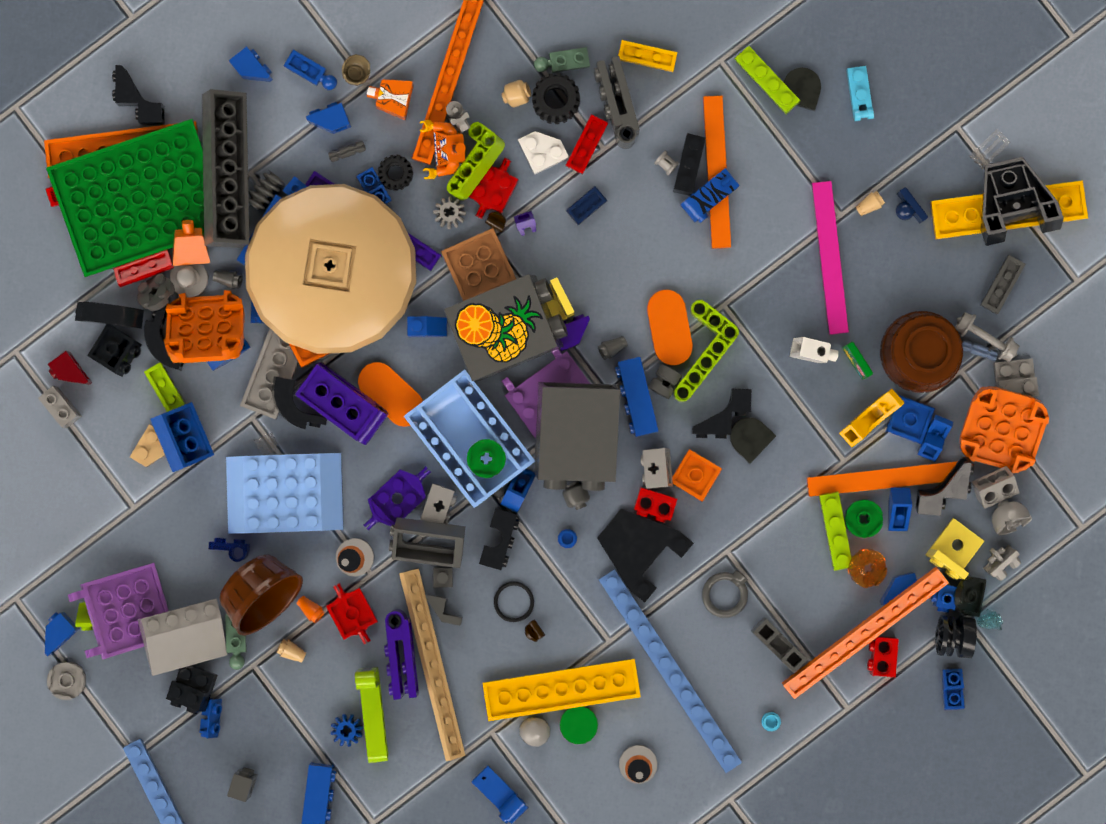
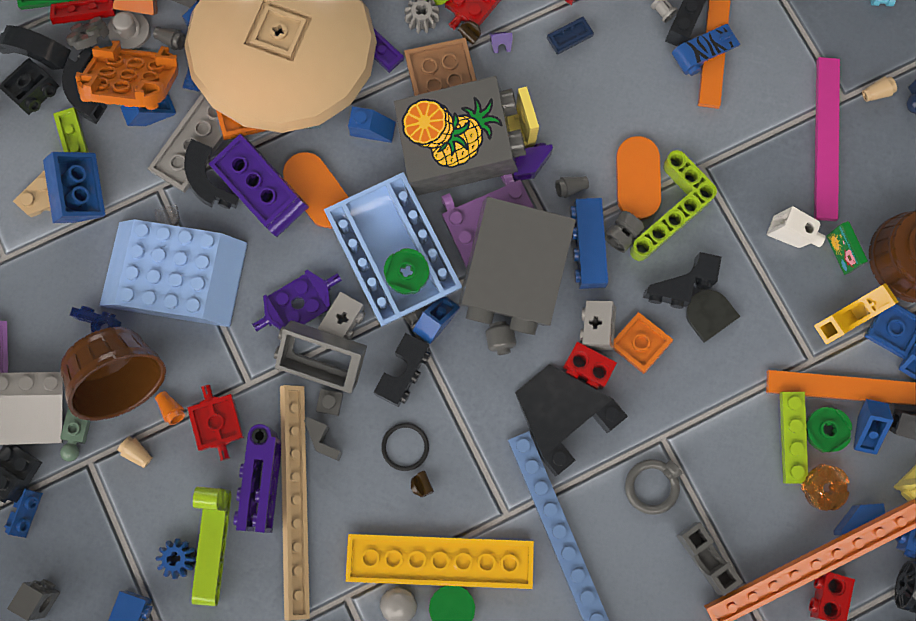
camera: 10 degrees right, 10 degrees down
(354, 557) = (234, 359): tile -> none
(567, 538) = (481, 385): blue plate -> none

